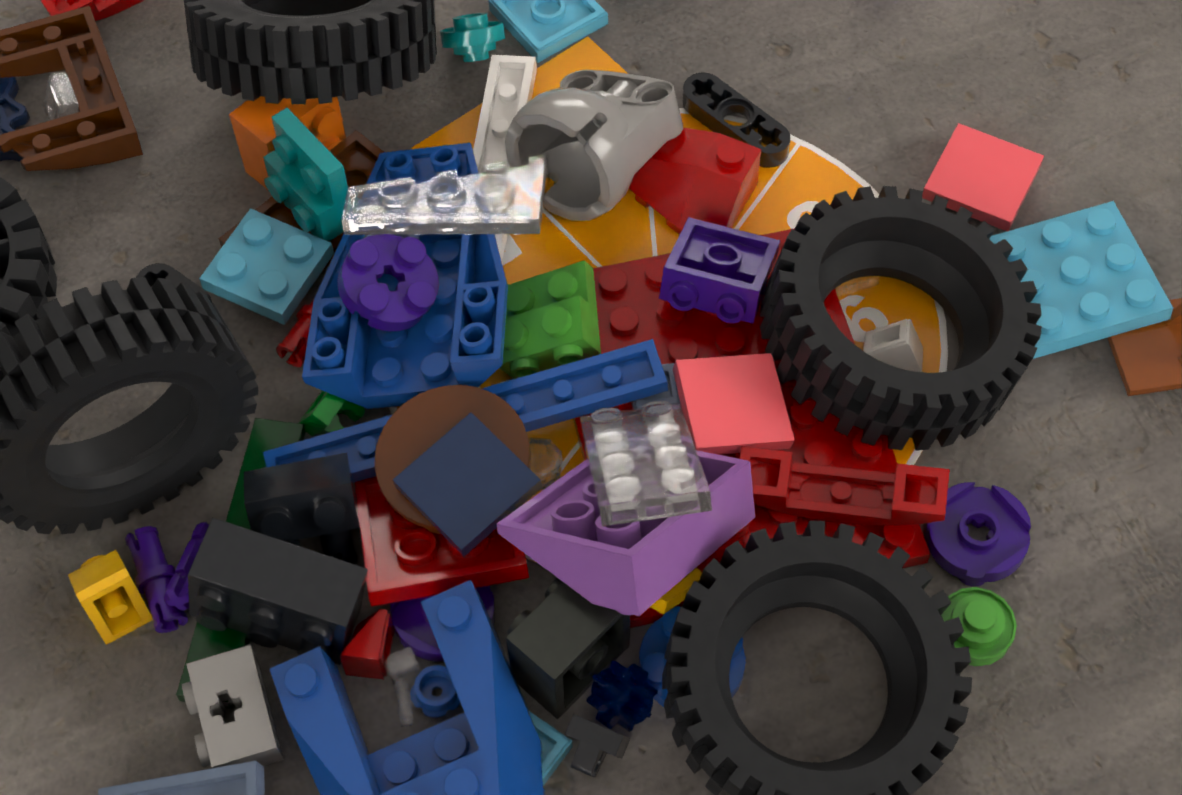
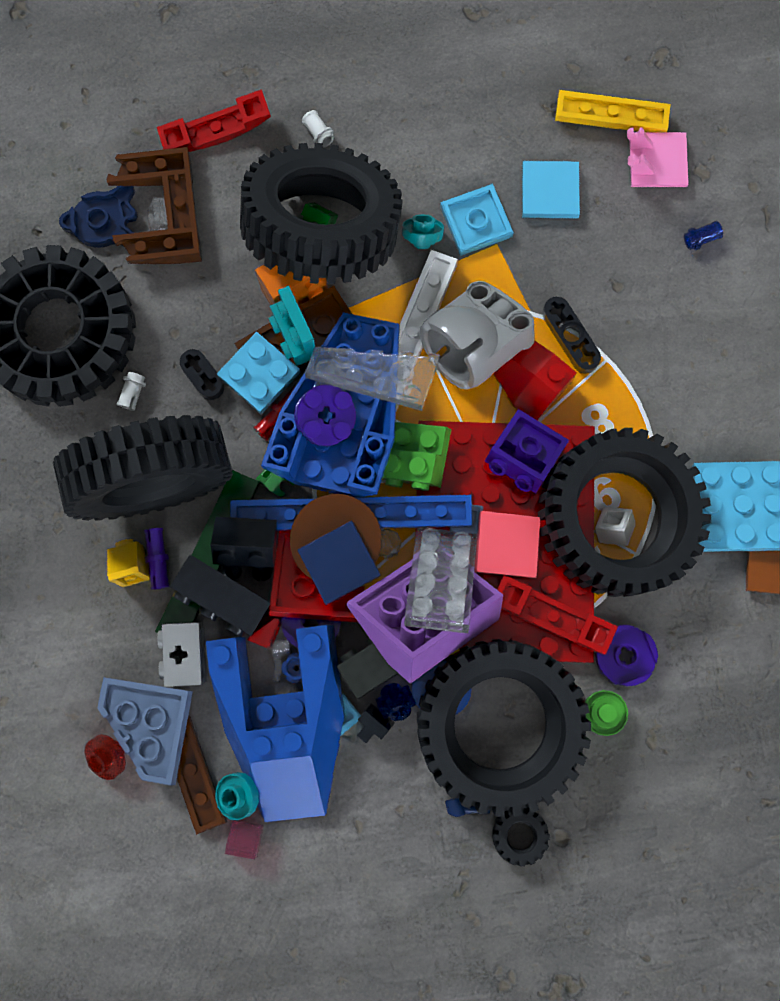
camera: 15 degrees right, 20 degrees up
(177, 590) = (178, 557): dark purple axle -> none
(983, 176) = (711, 419): coral tile -> none

